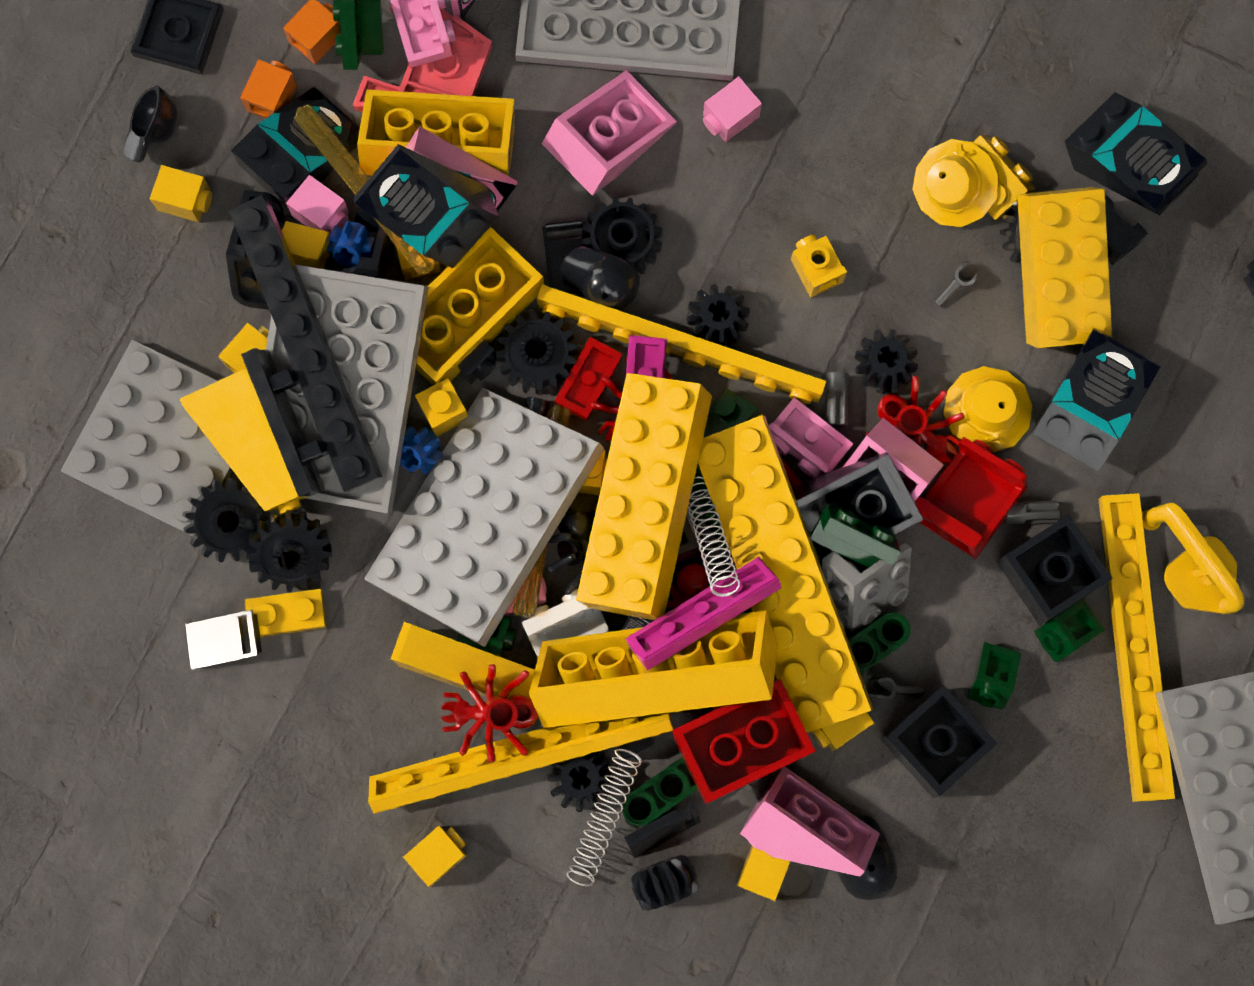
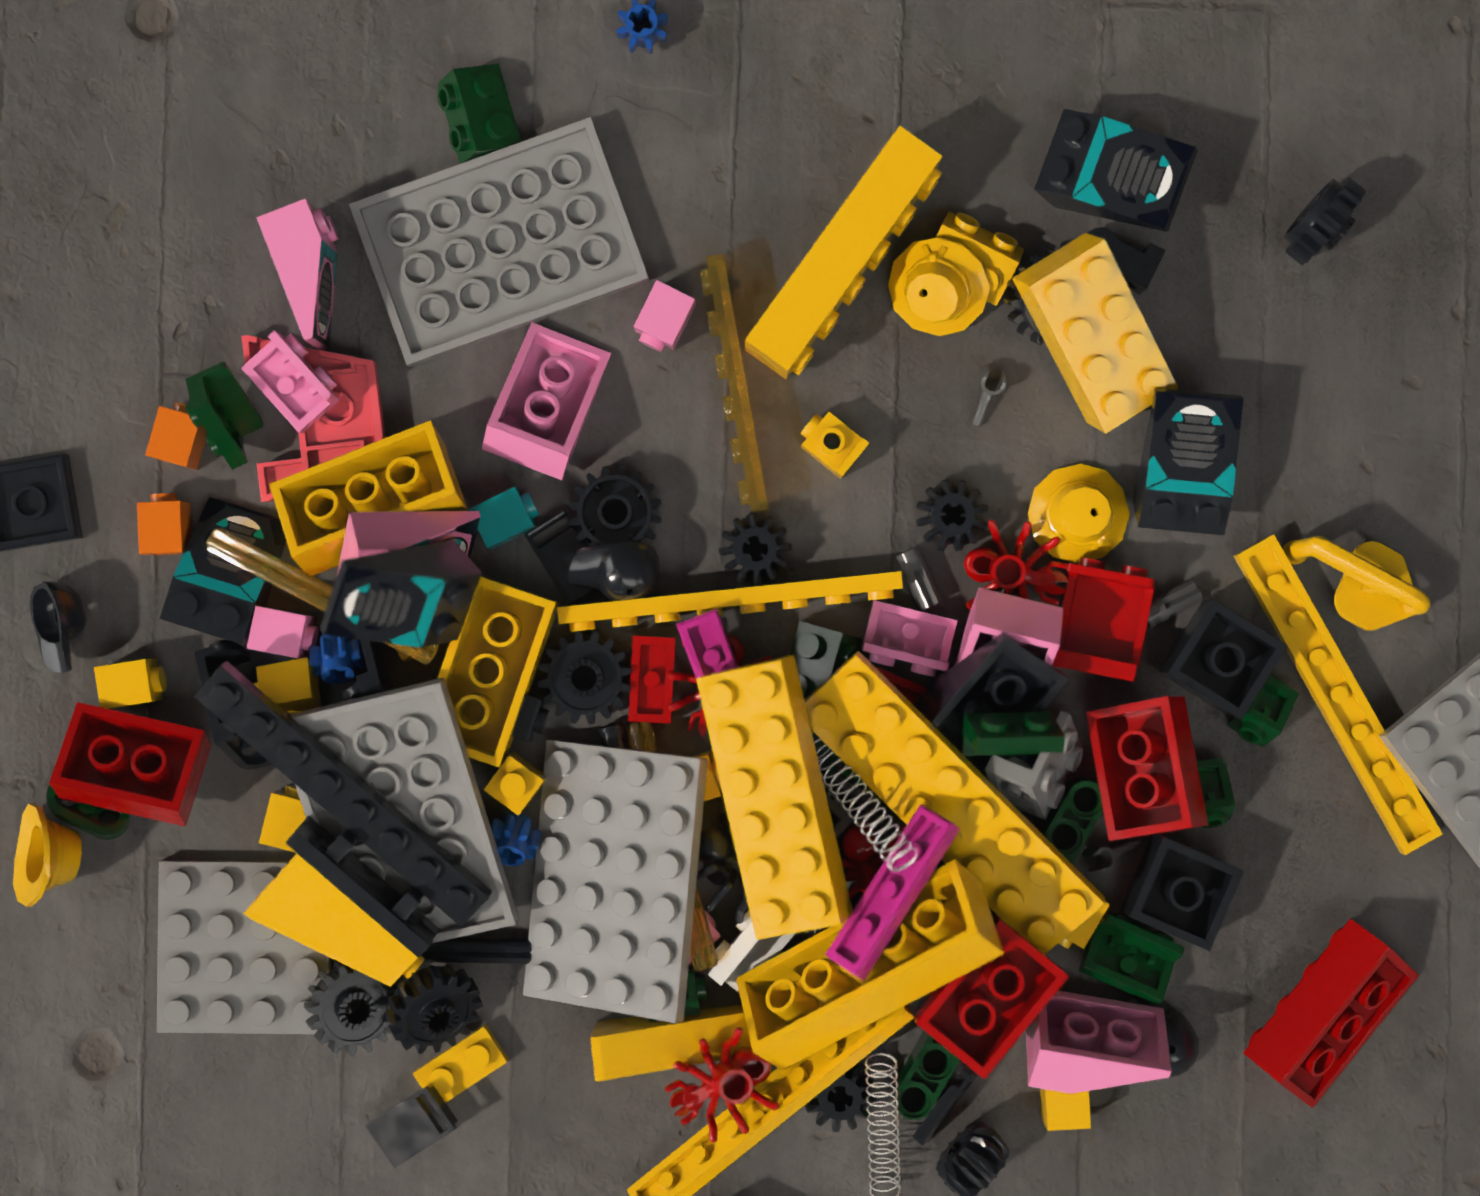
camera: 20 degrees left, 10 degrees up
(49, 291) = (44, 855): none -> yellow hat
(101, 274) = (88, 817): none -> dark green plate
(151, 250) = (130, 764): none -> red brick
(345, 527) = (479, 951): none -> black axle
(534, 202) = (506, 517): none -> teal brick
(764, 170) = (730, 366): none -> clear yellow plate
(872, 779) = (1131, 958): none -> dark green bracket
(892, 122) = (843, 252): none -> yellow brick
(954, 625) = (1146, 768): none -> red brick
(1018, 905) = (1330, 1012): none -> red slope

